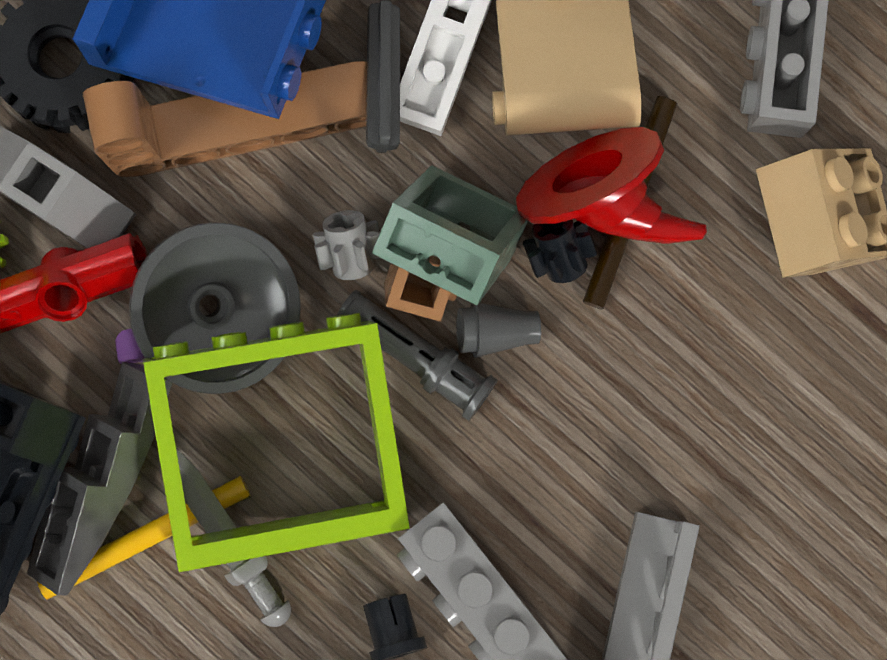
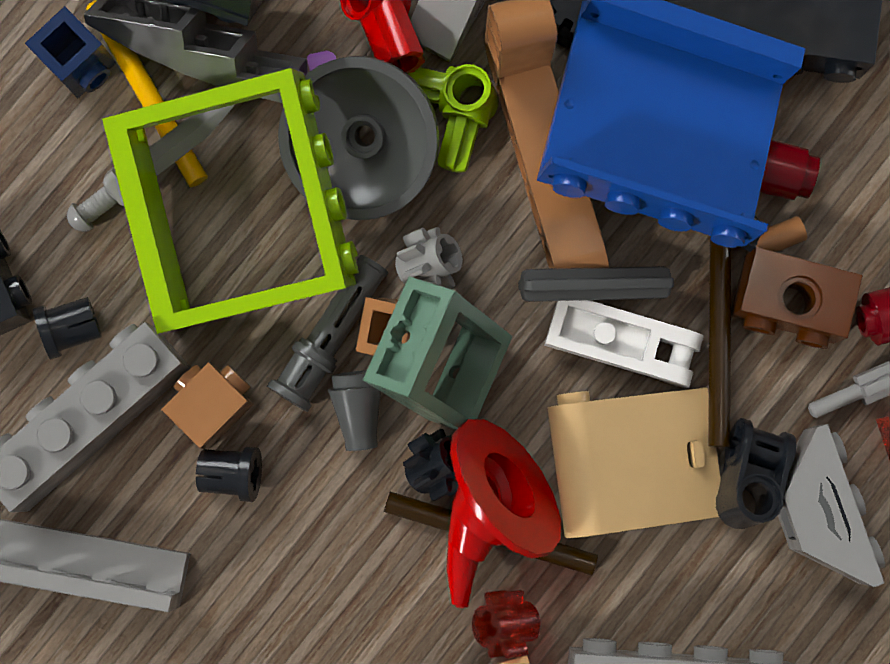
camera: 85 degrees right, 0 degrees up
(100, 610) = (72, 53): none -> dark blue brick
(201, 202) = (462, 119): none -> lime axle
(482, 481) = (208, 403): none -> medium nougat brick
(556, 463) = (230, 472): none -> black bush
(723, 188) = (506, 624): none -> clear red gear

